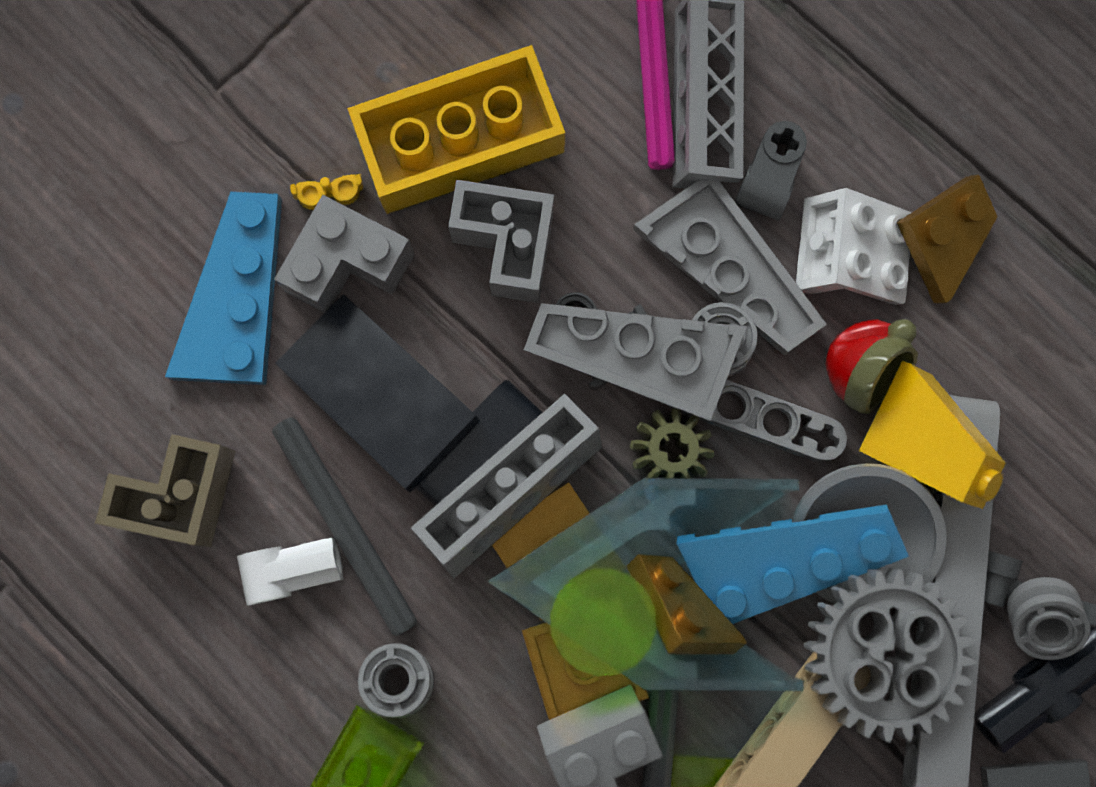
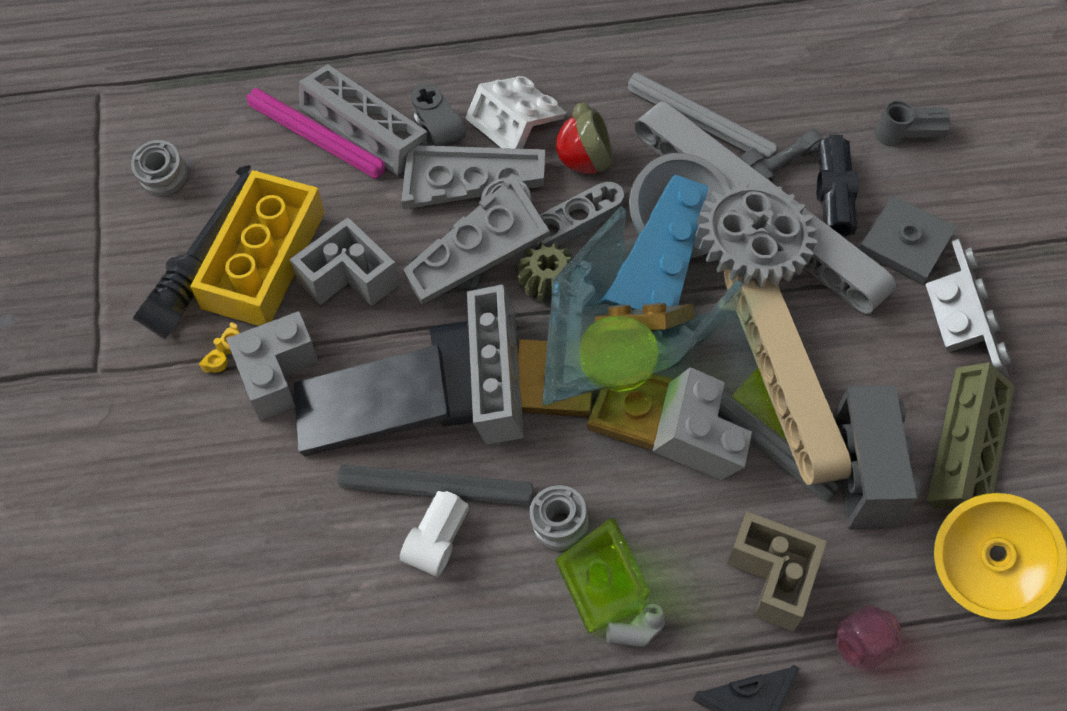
camera: 50 degrees left, 20 degrees down
(183, 502) = (335, 568): dark tan brick -> none
(232, 305) = (239, 455): dark azure wing -> none
(316, 97) = (173, 292): none -> black piece
(933, 439) = (654, 132): yellow slope -> none
(948, 235) = (548, 67): pearl gold wing -> none
(1023, 460) = (702, 116): none -> light grey axle
(1048, 618) = (810, 154): light grey wheel -> none

